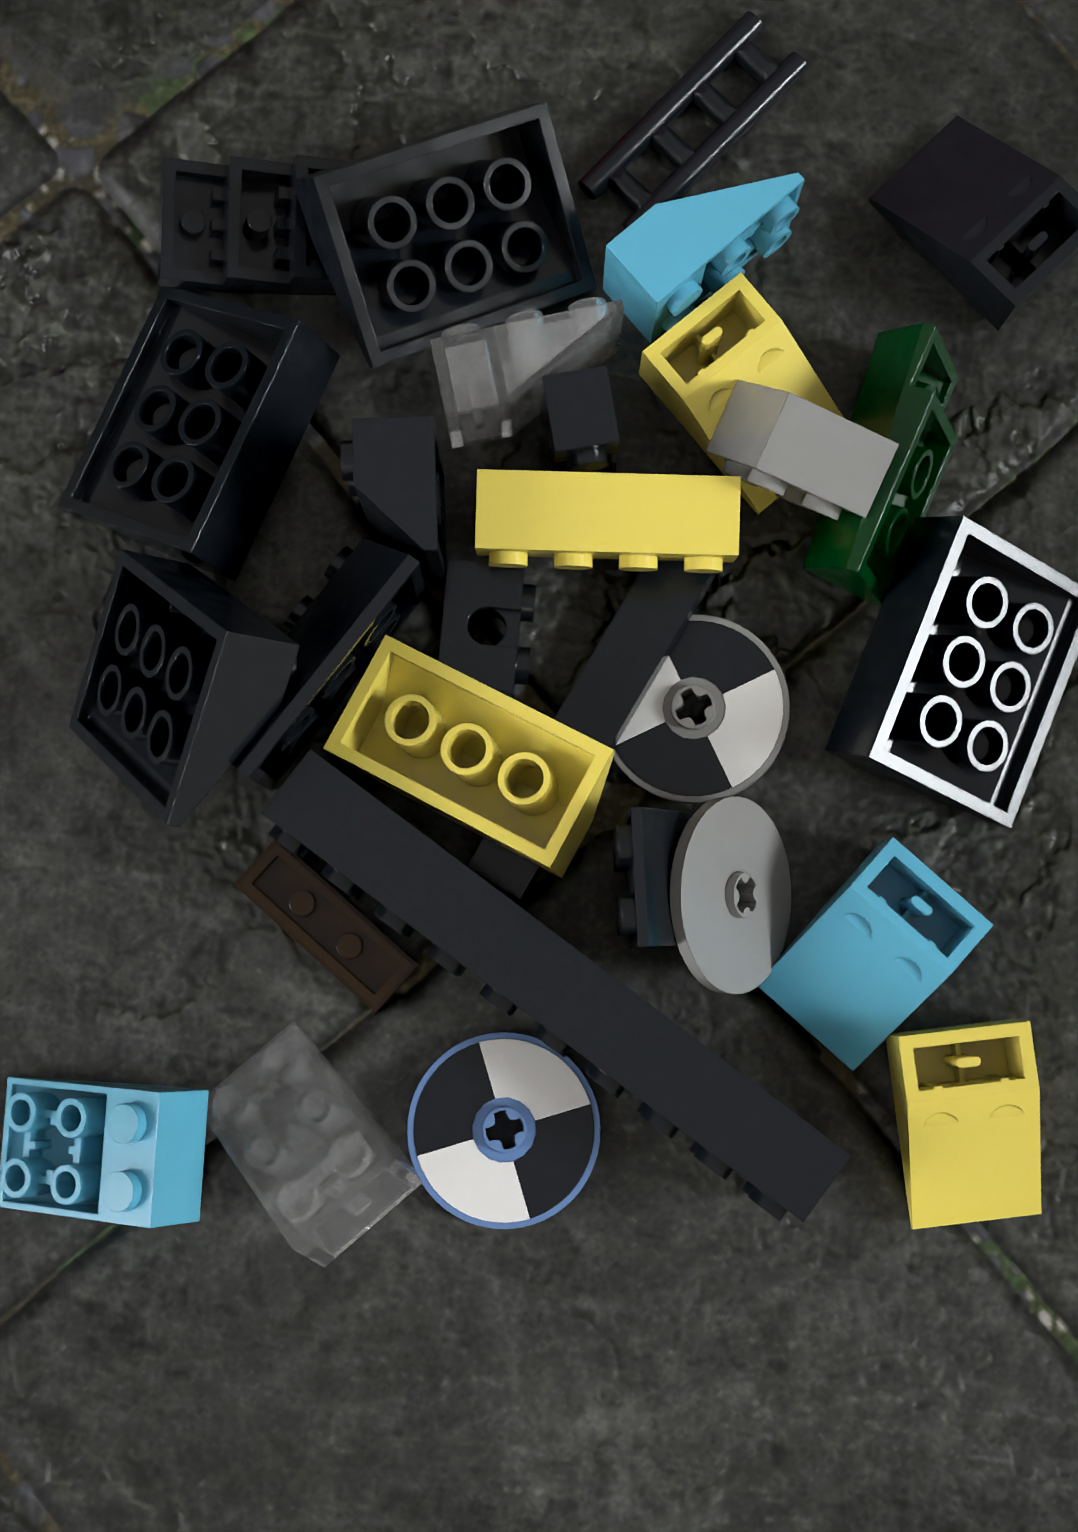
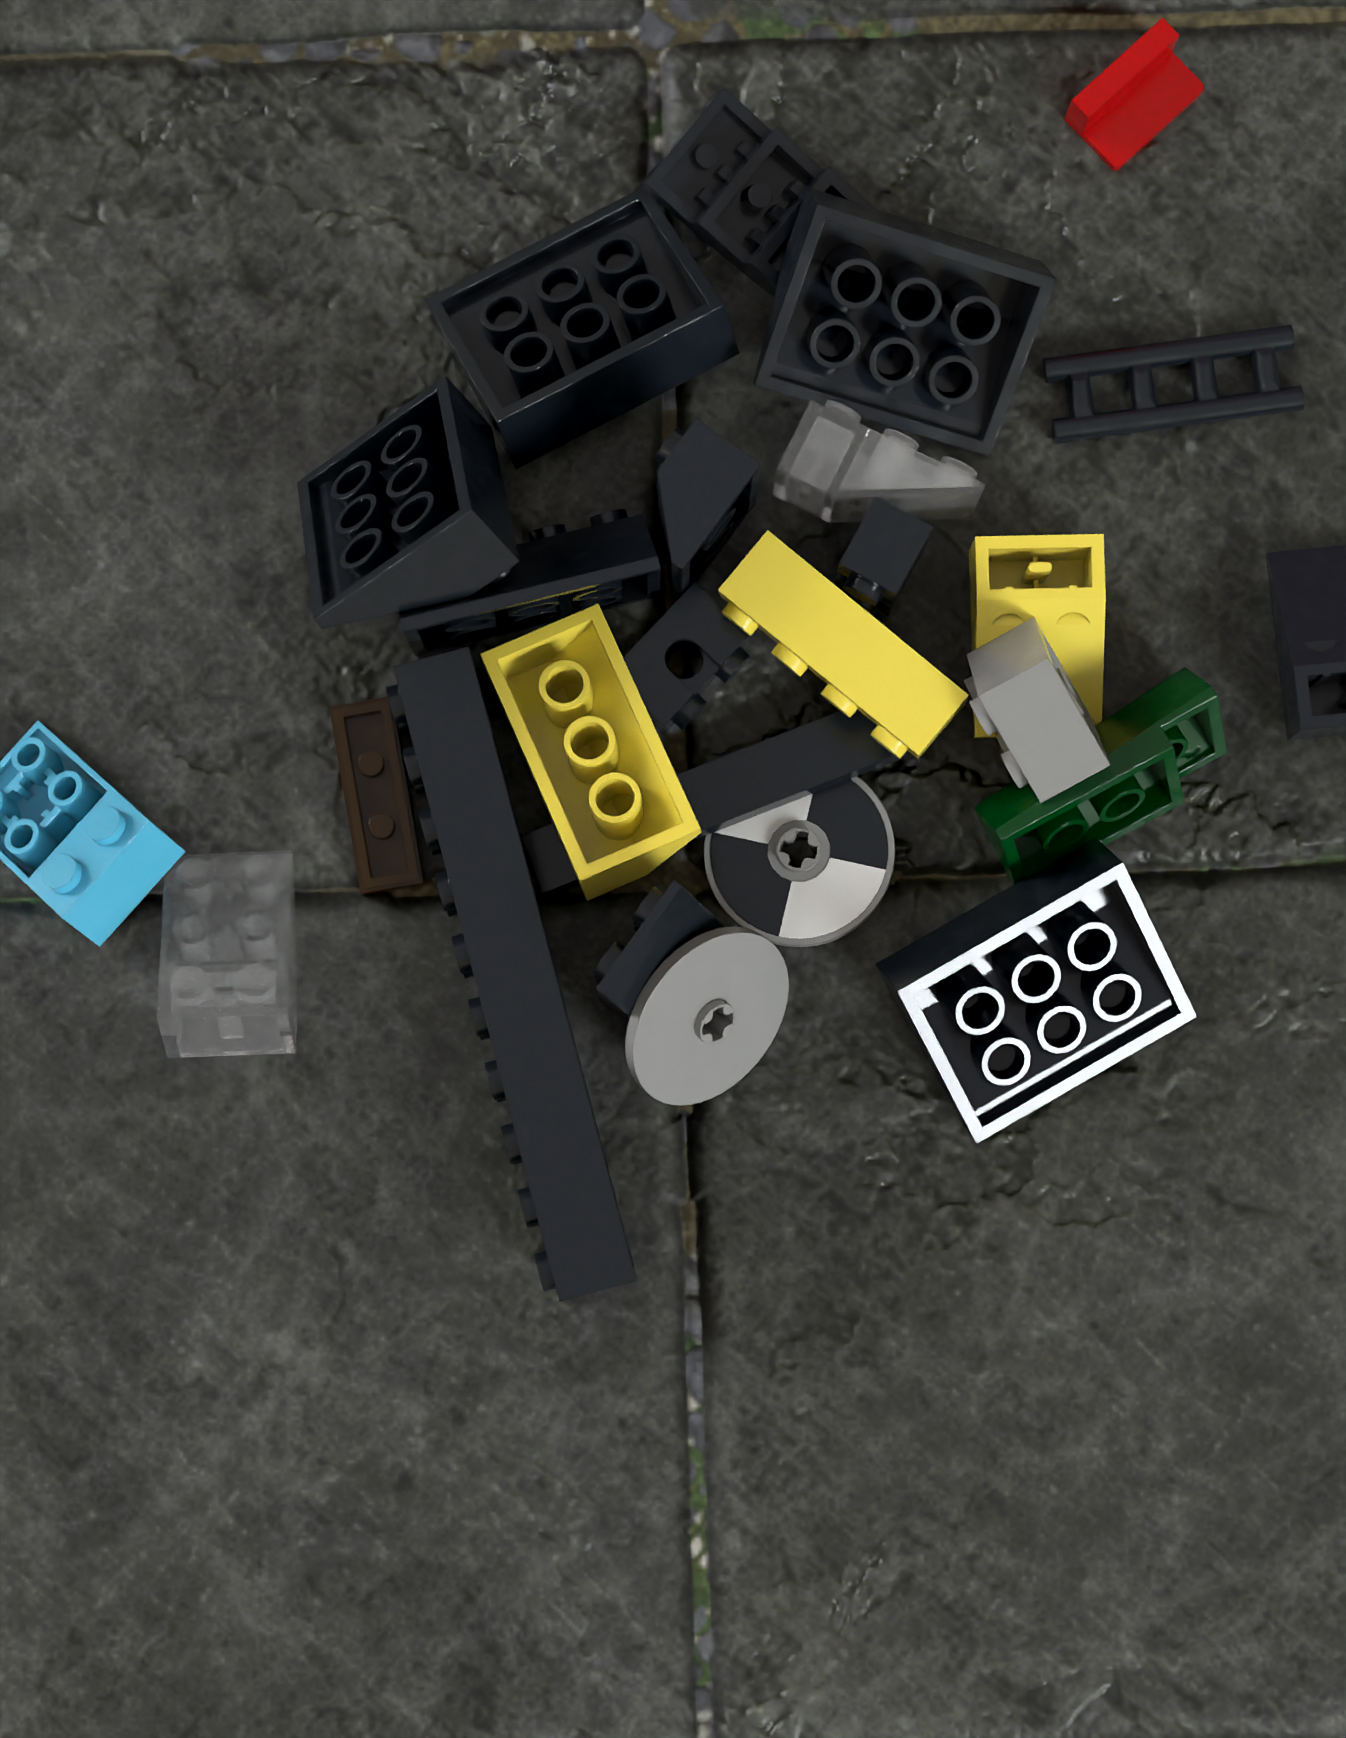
camera: 35 degrees right, 0 degrees up
(478, 1176) = (342, 1085): piece -> none
(695, 248) = (1083, 485): medium azure slope -> none
(874, 953) = (783, 1151): medium azure slope -> none
(968, 1121) = (752, 1341): light yellow slope -> none

